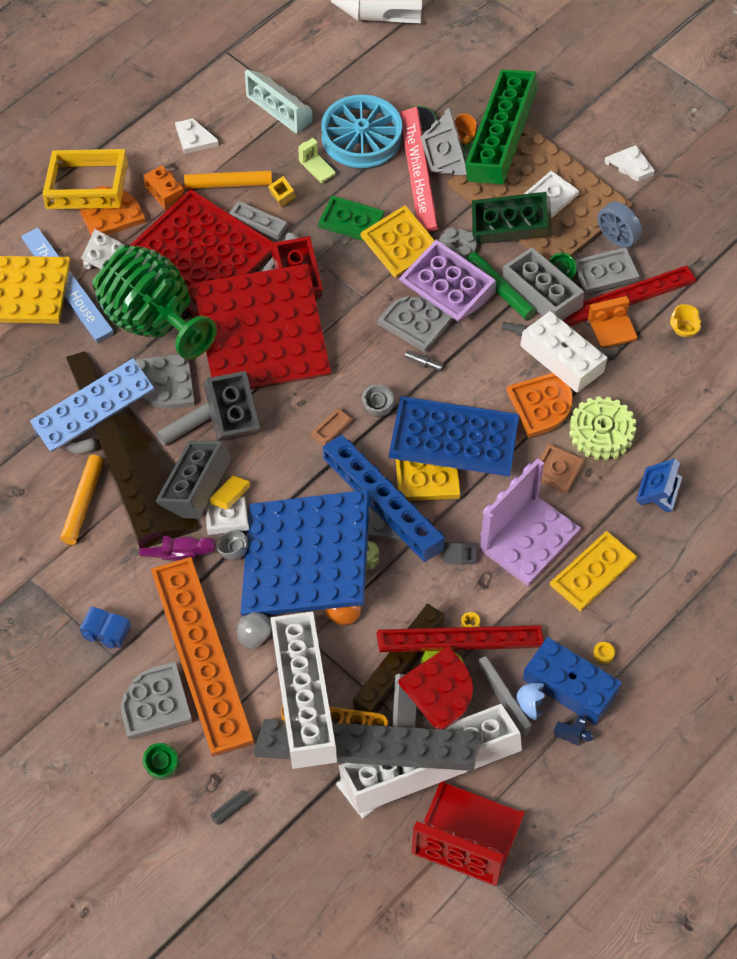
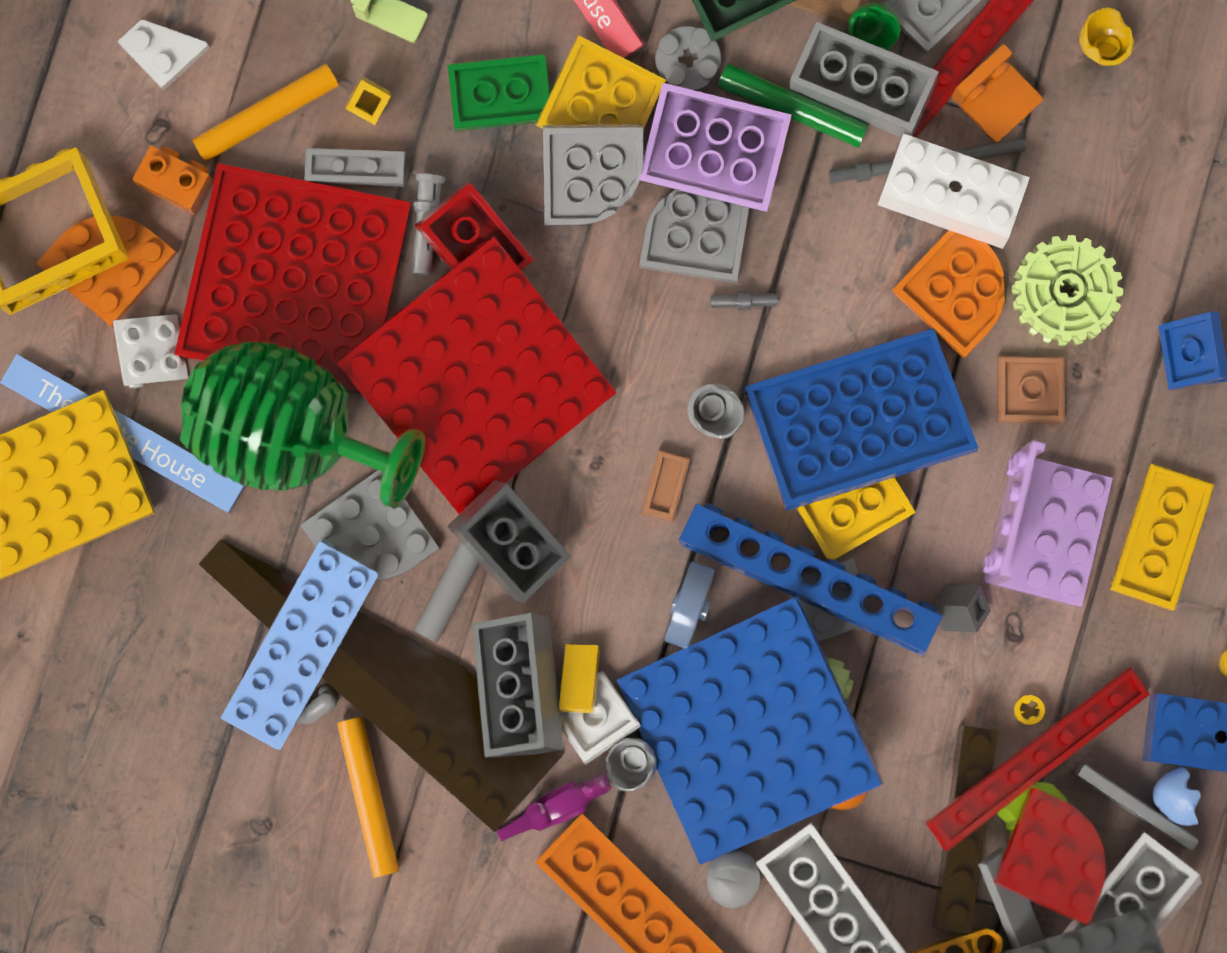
camera: 25 degrees left, 25 degrees up
(309, 477) = (689, 605): none -> sand blue wheel
(375, 265) = (589, 170): none -> light grey plate

